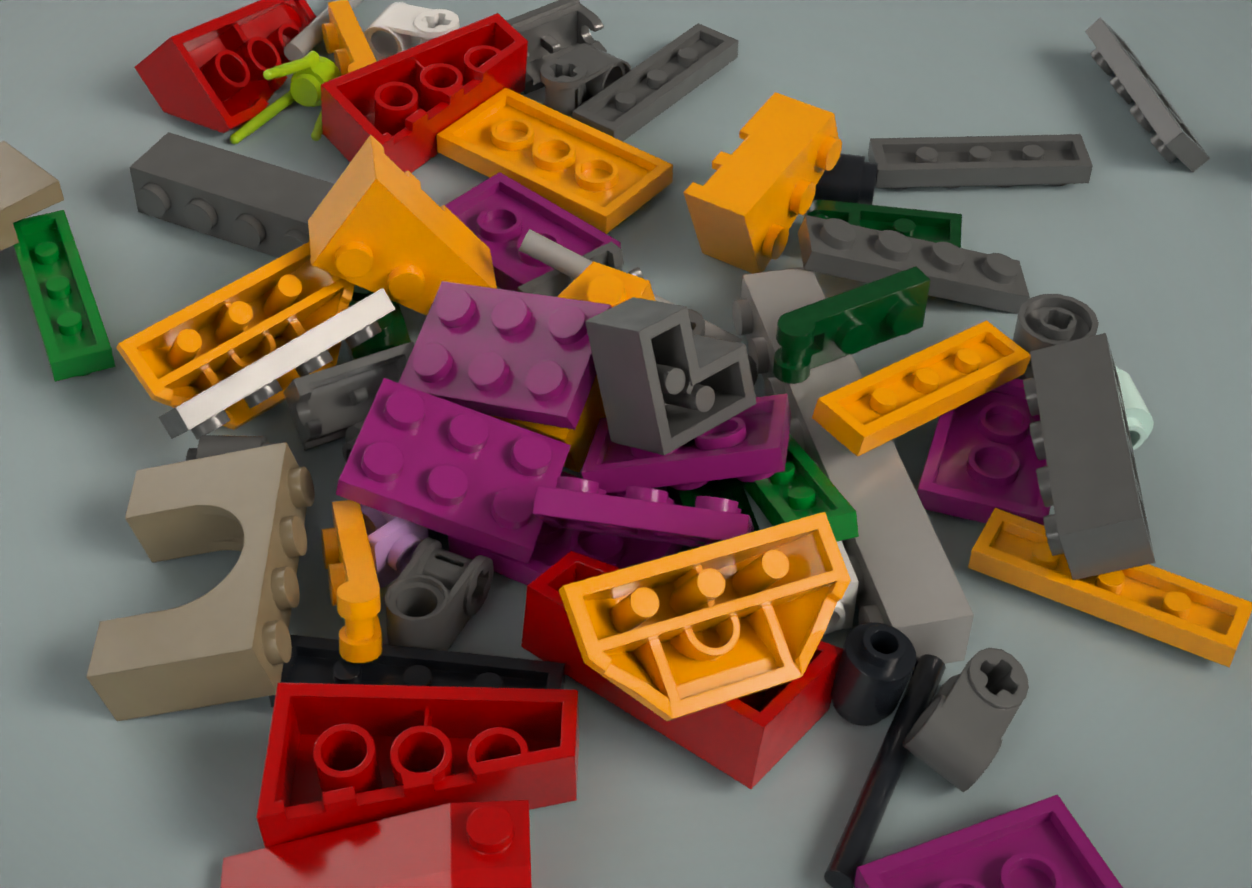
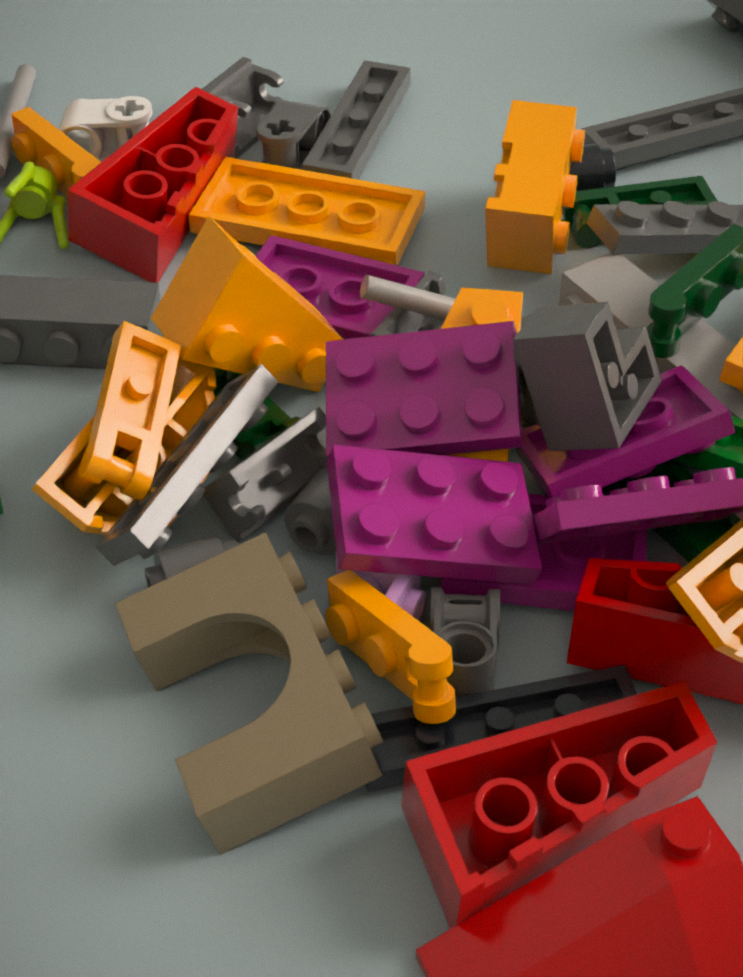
camera: 20 degrees left, 0 degrees up
(238, 298) = (131, 410): none -> light orange plate

